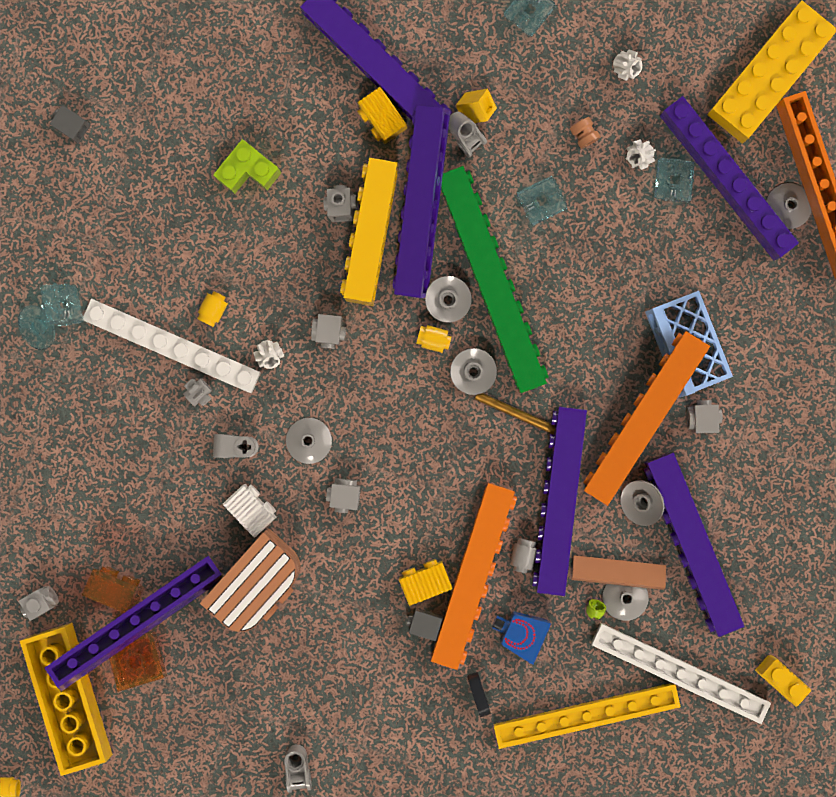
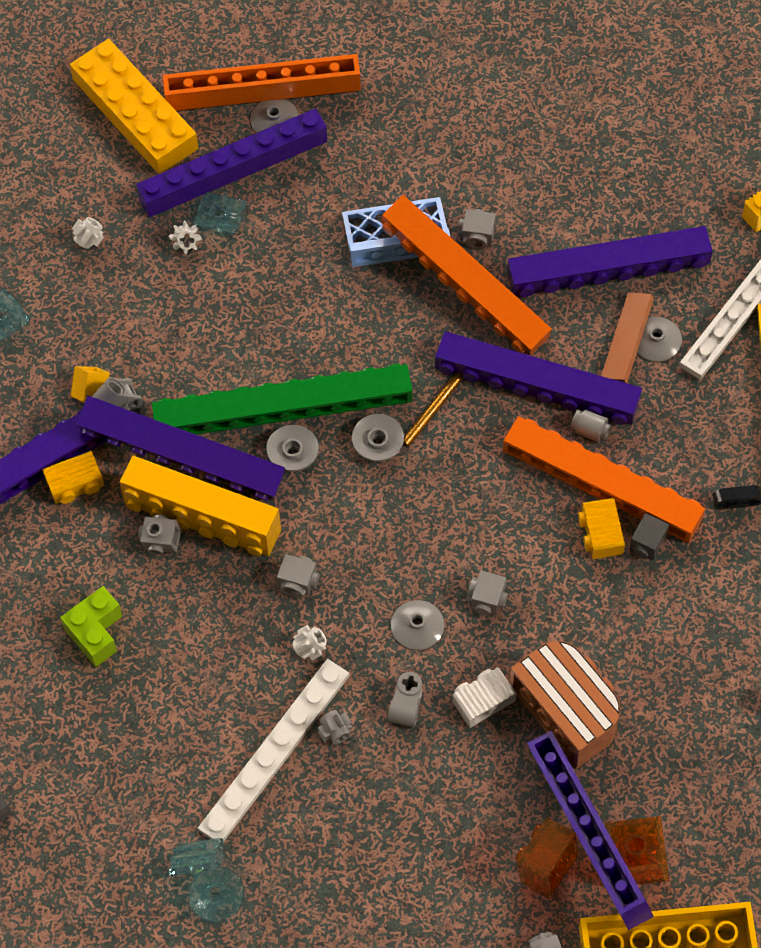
camera: 80 degrees left, 25 degrees down
(212, 308) = (242, 694): yellow brick -> none
(434, 338) = (332, 470): yellow brick -> none
(522, 634) = (678, 441): blue torso -> none
(535, 212) = (213, 349): clear light blue piece -> none
(585, 132) = (153, 283): nougat wheel -> none
(595, 609) = (664, 367): lime hinge -> none
(635, 507) = (565, 308): light grey dish -> none

